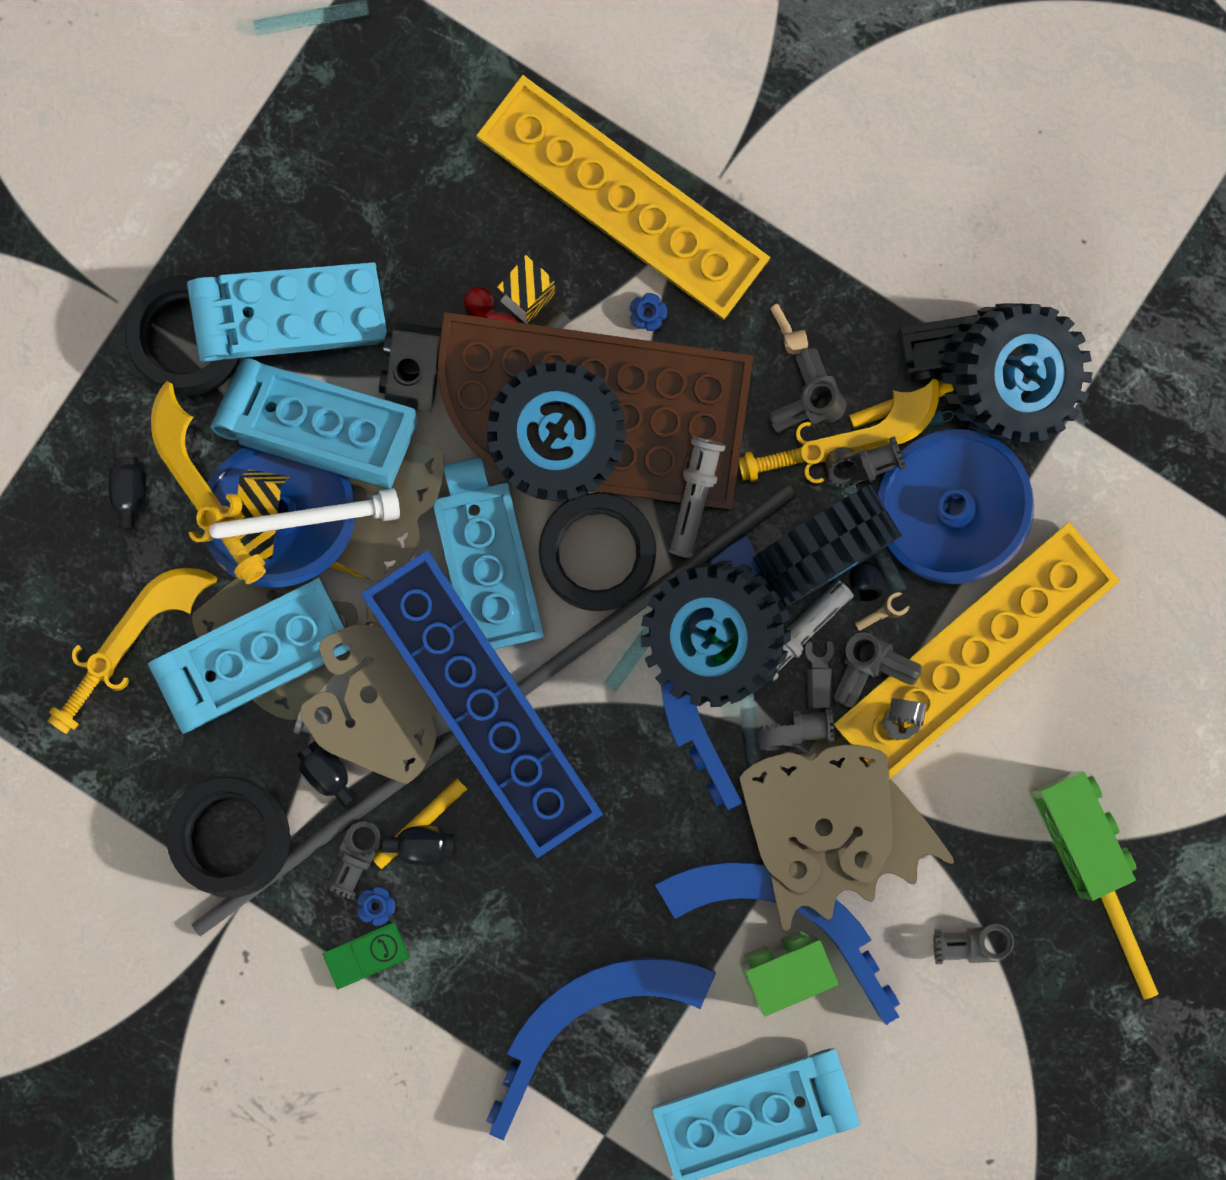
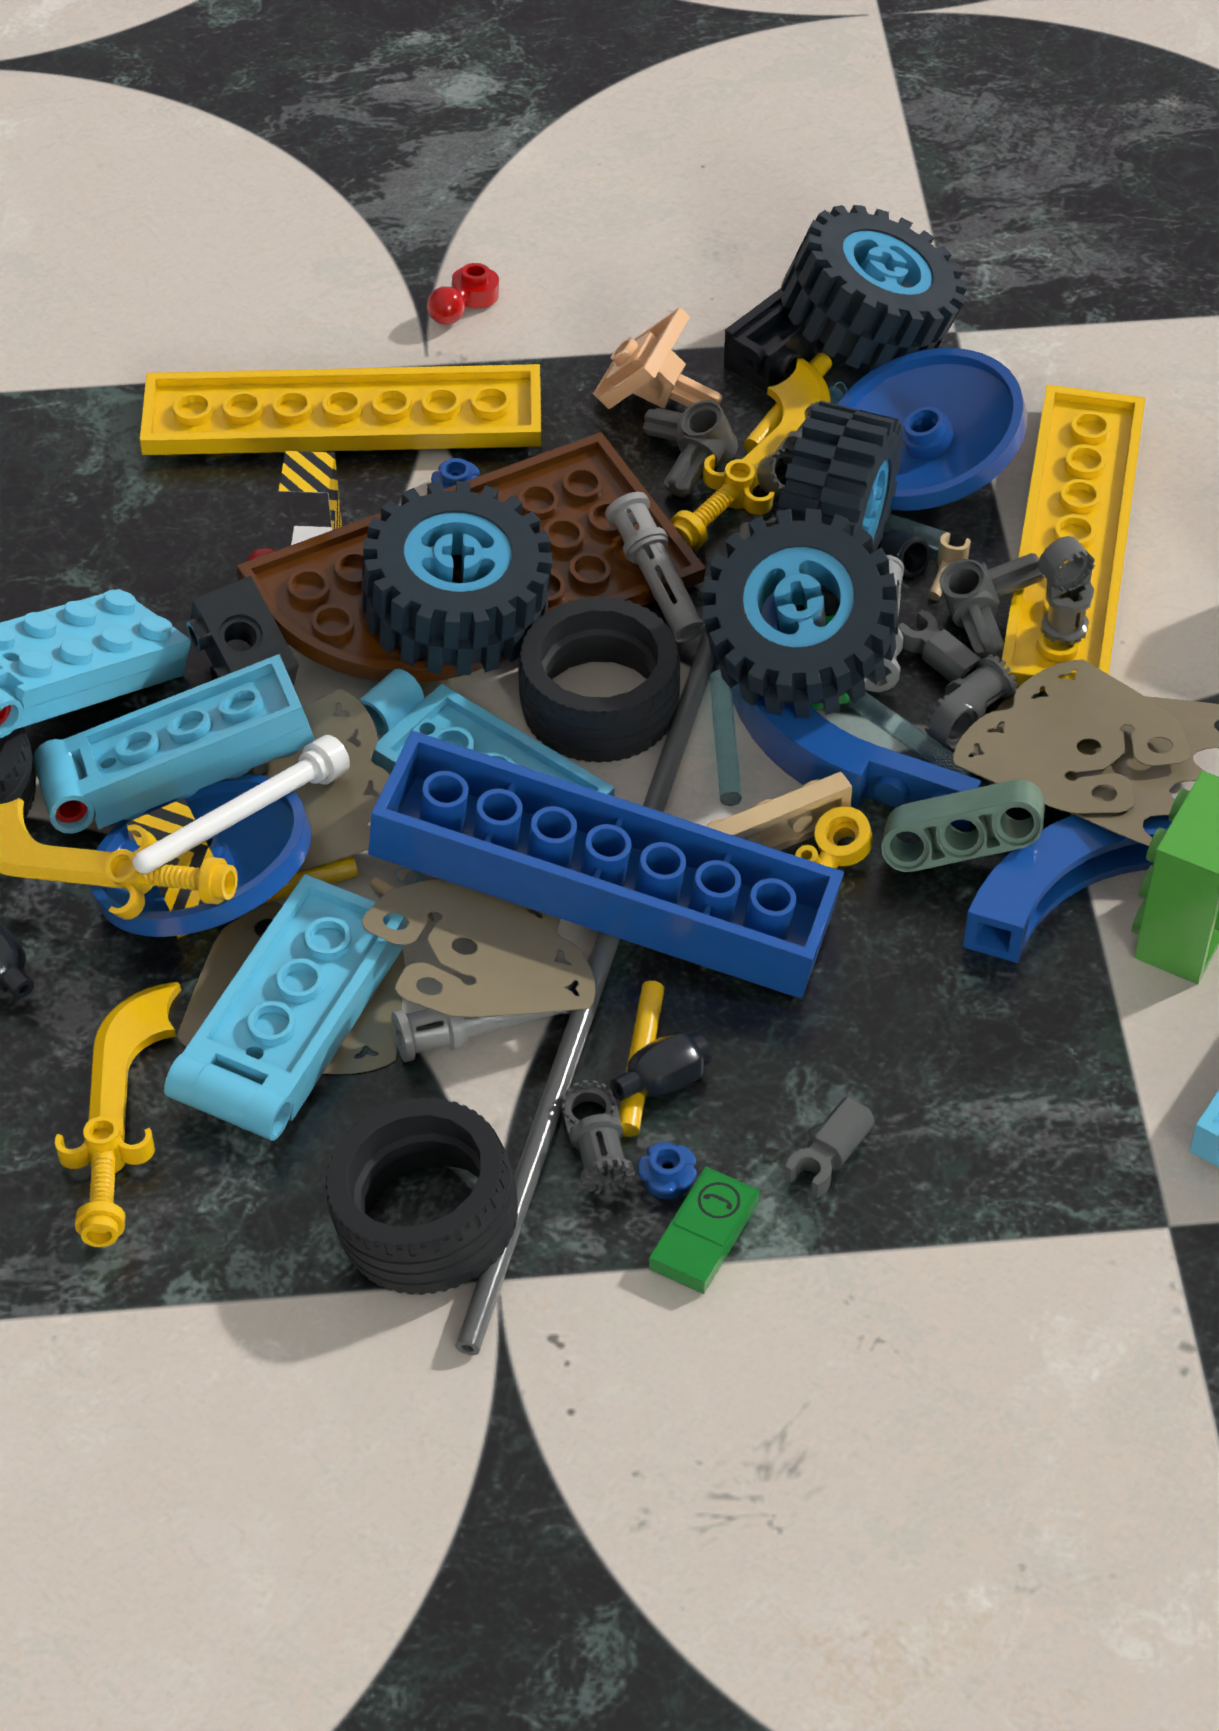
camera: 35 degrees left, 35 degrees down
(325, 773) = (481, 1071): black plant -> none
(471, 958) = (831, 1144): none -> dark grey bar
(602, 984) = (1035, 1030): blue arch -> none
(611, 729) = (789, 817): none -> tan plate
(632, 772) = (832, 827): none -> yellow plate
(705, 825) = (981, 806): none -> sand green beam
(759, 149) = (470, 287): none -> red plate
(793, 341) = (625, 421): tan hand -> none
(827, 317) = (652, 369): none -> light nougat piece

